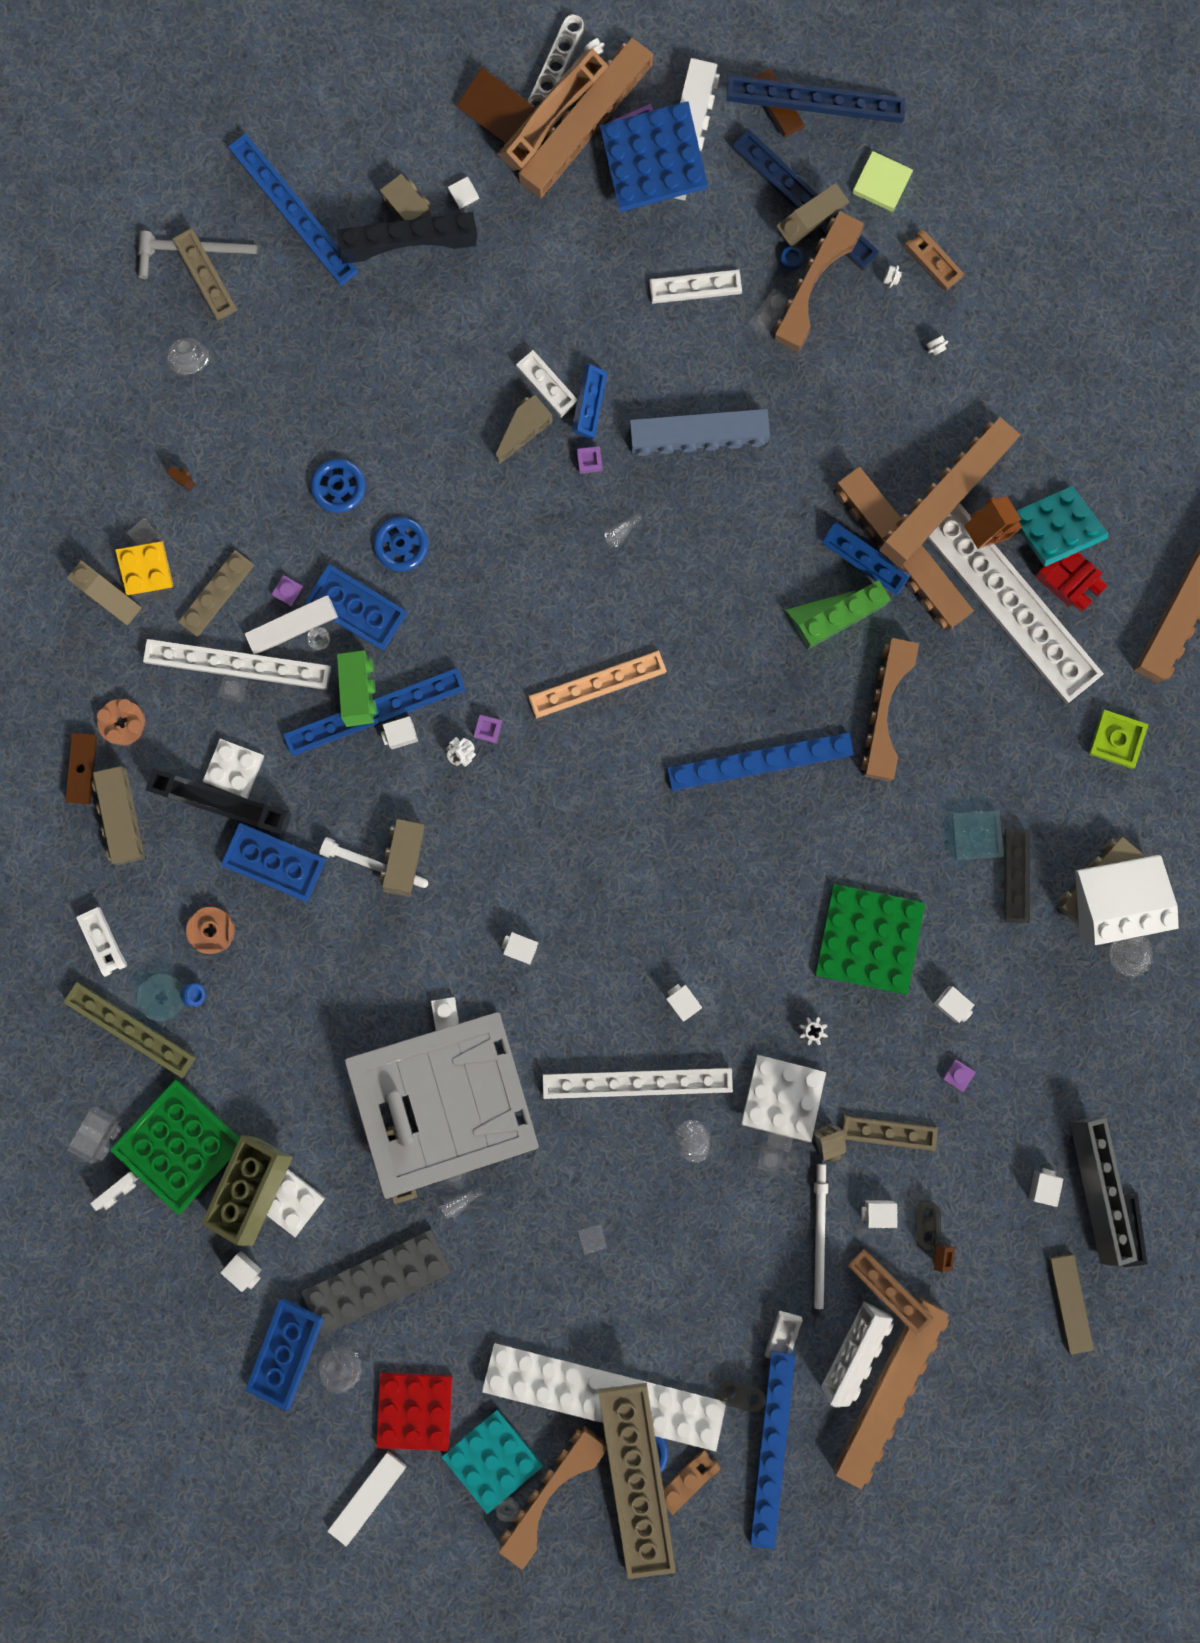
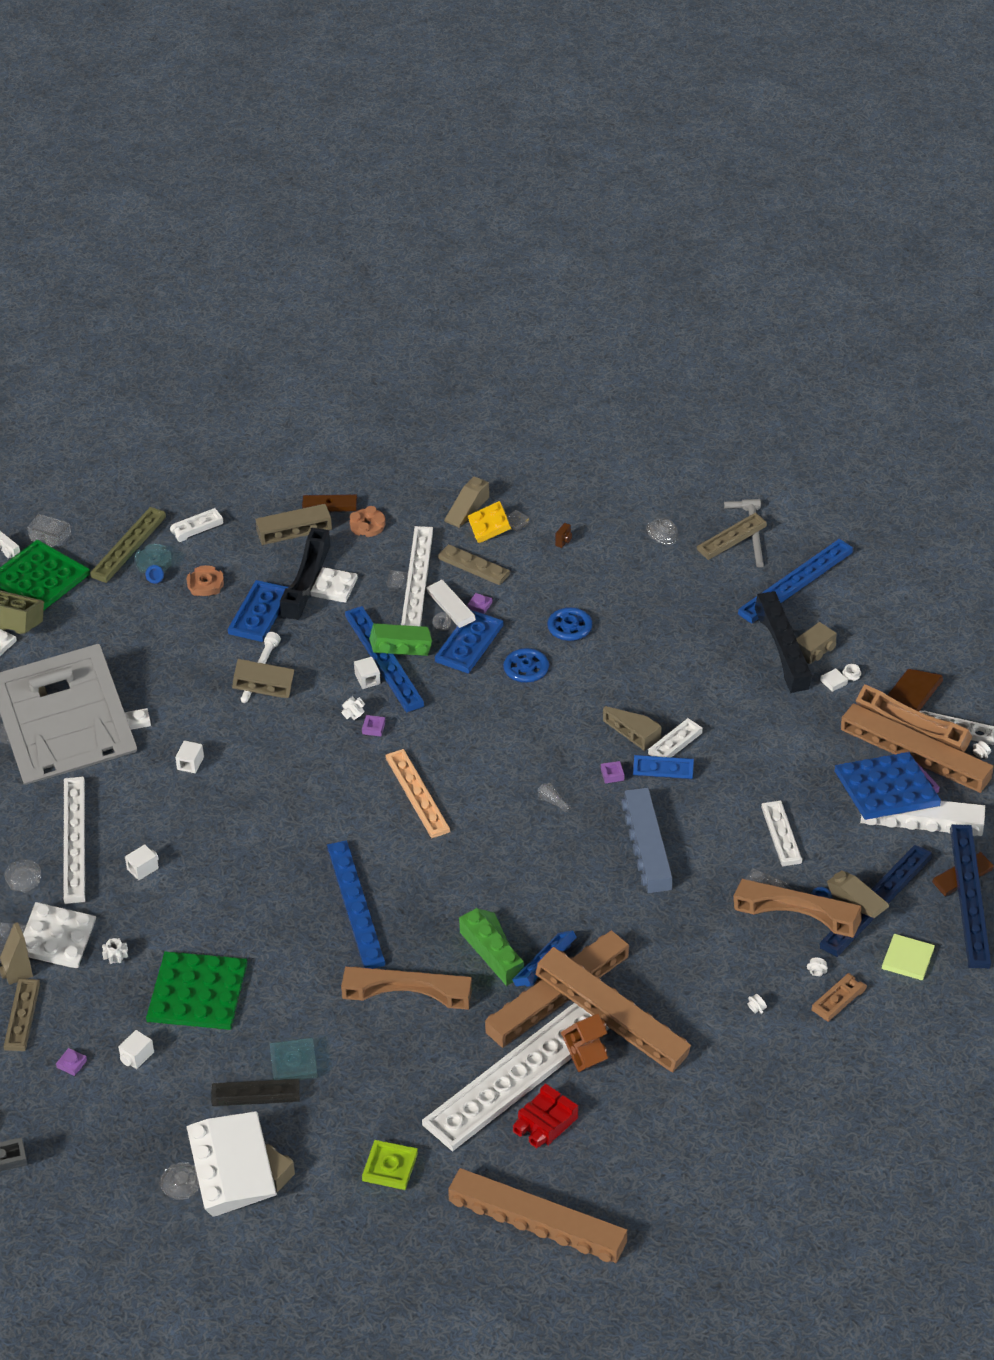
camera: 90 degrees right, 40 degrees down
(452, 165) = (852, 672): none -> white plate
(1060, 526) = (591, 1098): teal plate -> none

